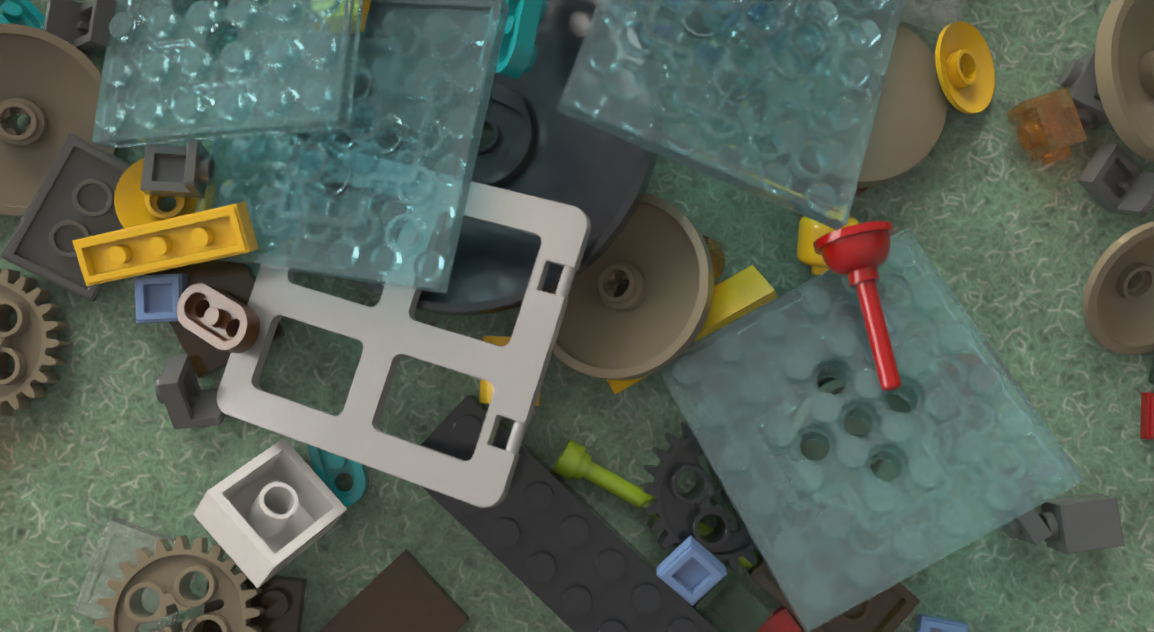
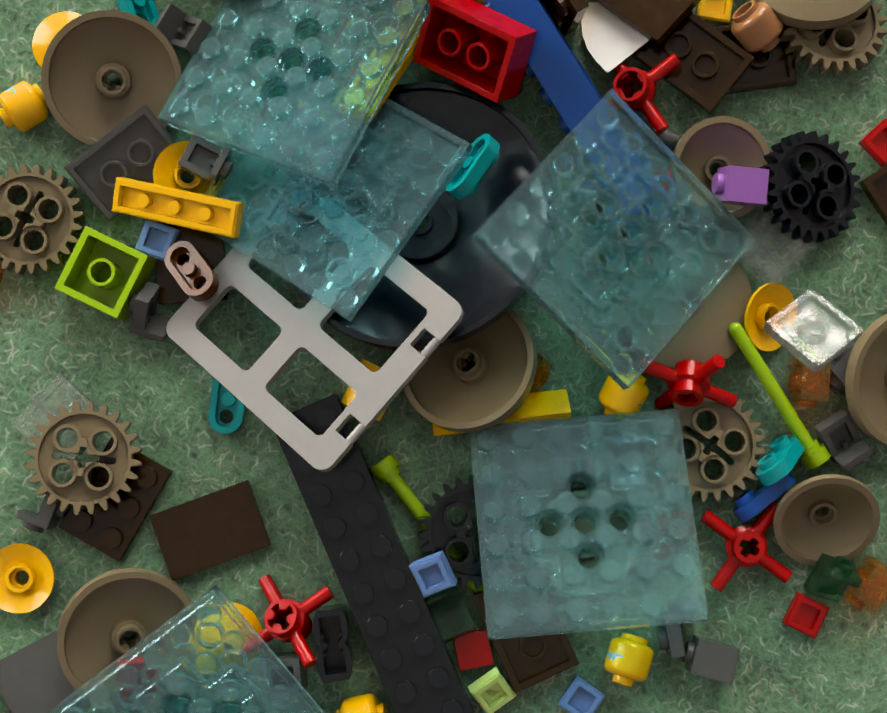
camera: 25 degrees right, 0 degrees up
(108, 368) = (104, 273): none -> lime brick
(269, 511) = (171, 414): white brick -> none
(857, 254) = (631, 411): red piece -> none
(910, 186) = (690, 383): none -> red bar
(964, 219) = (723, 422): none -> dark tan gear
(980, 571) = (628, 659): none -> yellow head
(1028, 60) = (813, 330): none -> clear plate
(1047, 305) = (752, 503): none -> blue plate
(1059, 238) = (779, 460): none -> teal plate
(1076, 357) = (733, 538): none -> red bar
(1088, 212) = (814, 452): none -> lime piece

